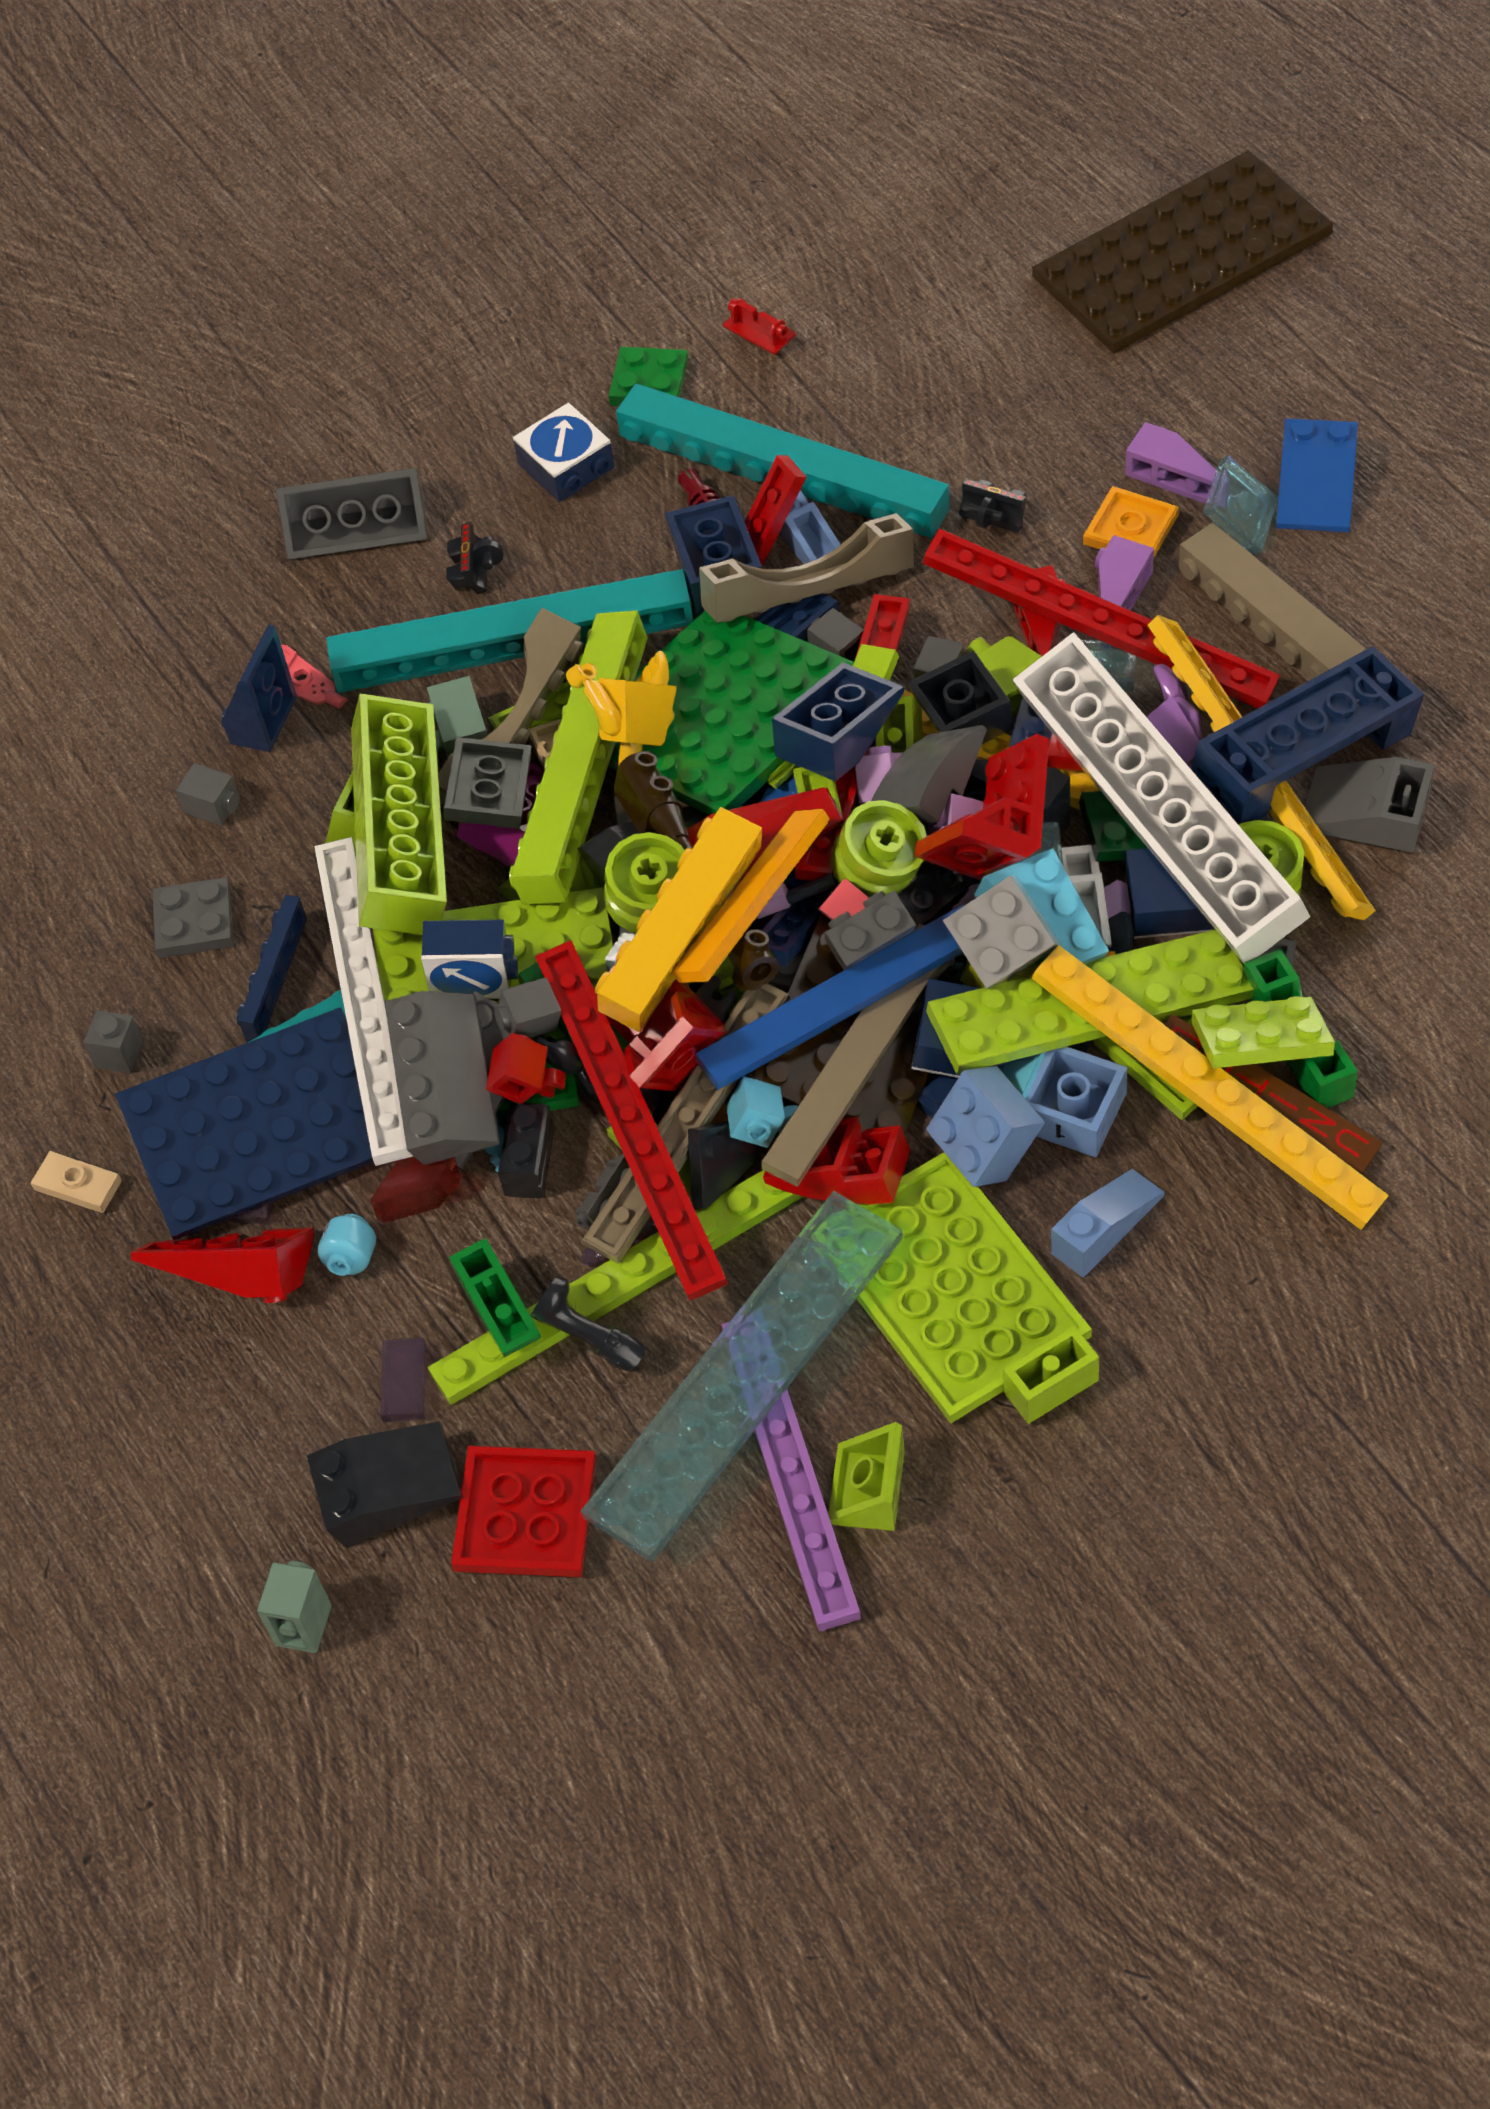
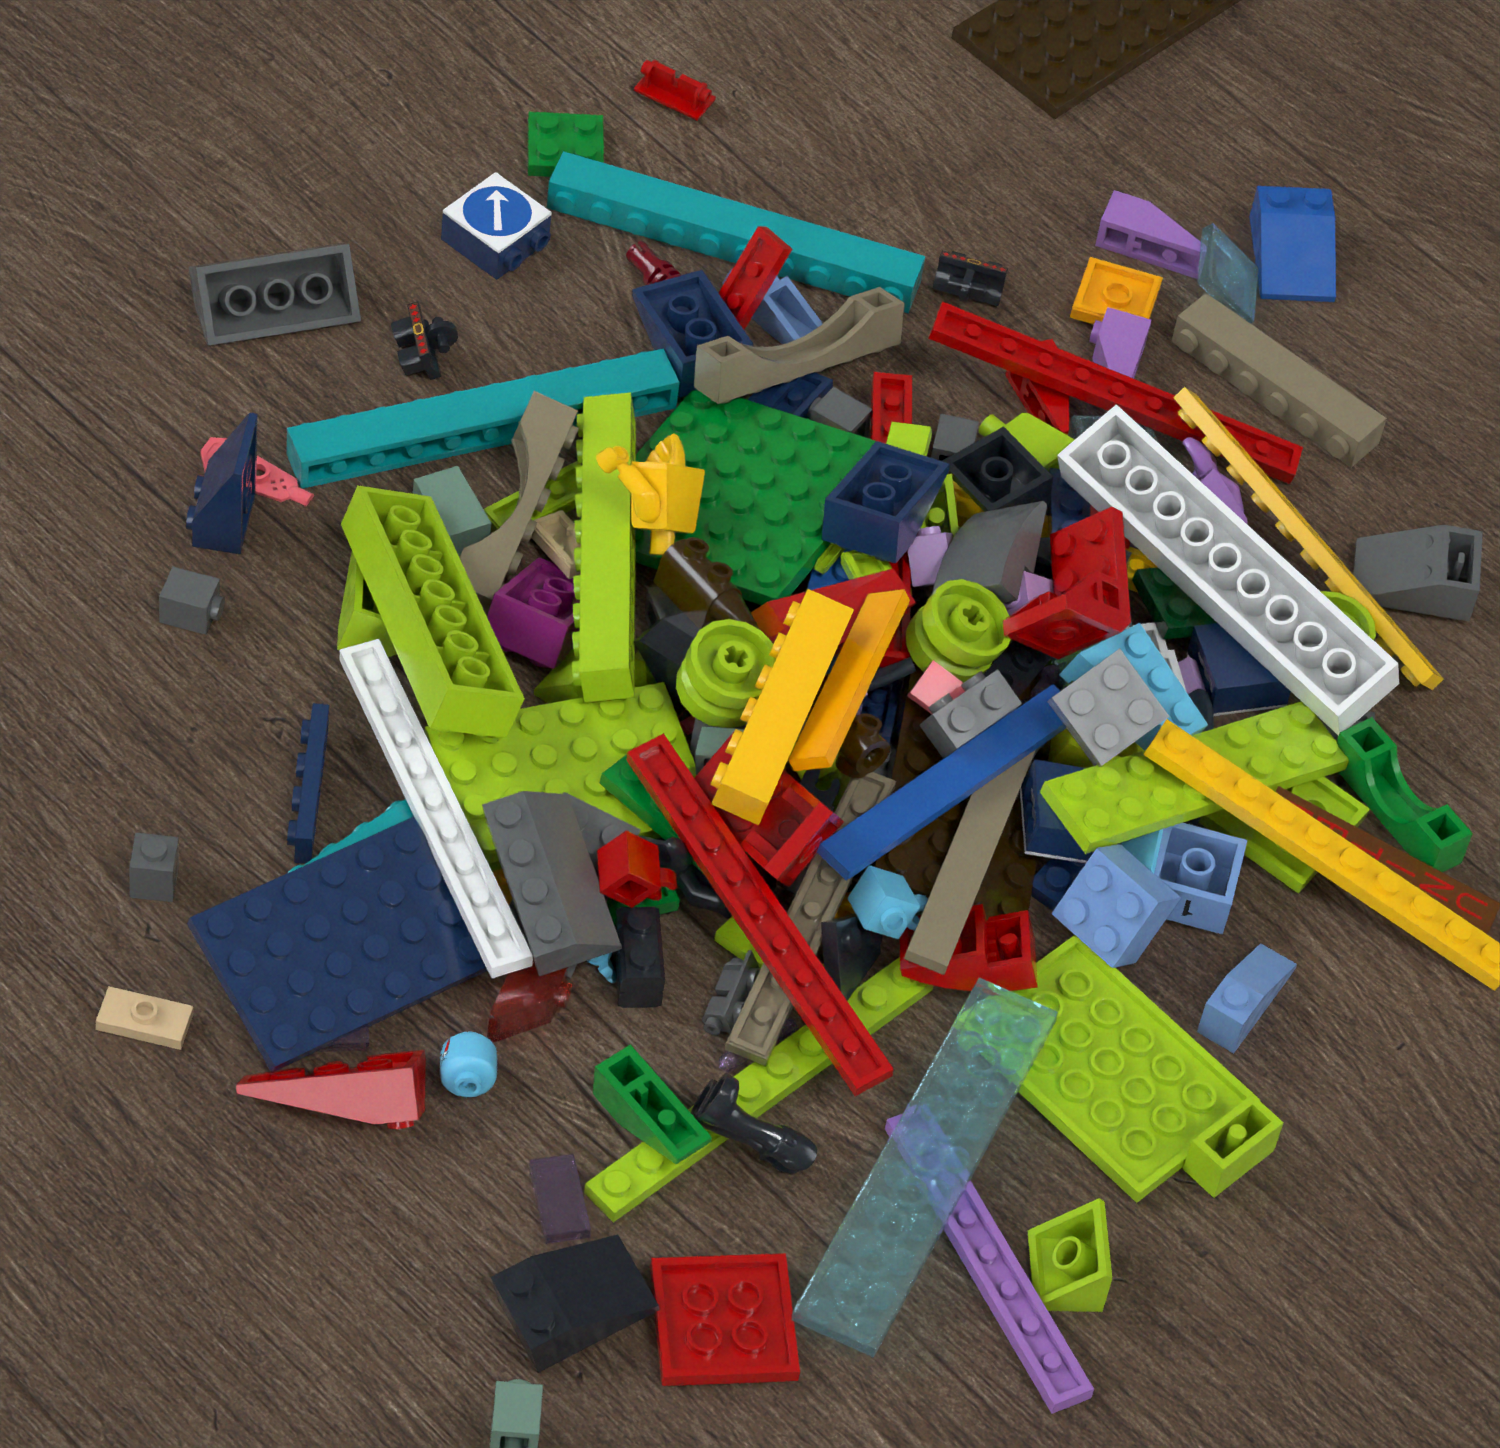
camera: 25 degrees left, 5 degrees down
(192, 917) = (202, 733): dark grey plate -> none
(468, 957) = (556, 755): piece -> none
(487, 783) = (519, 576): pearl dark grey plate -> none
(528, 1009) = (631, 806): dark grey brick -> none
(1262, 1032) = (1373, 799): lime plate -> none
(1304, 727) = (1355, 495): dark blue plate -> none

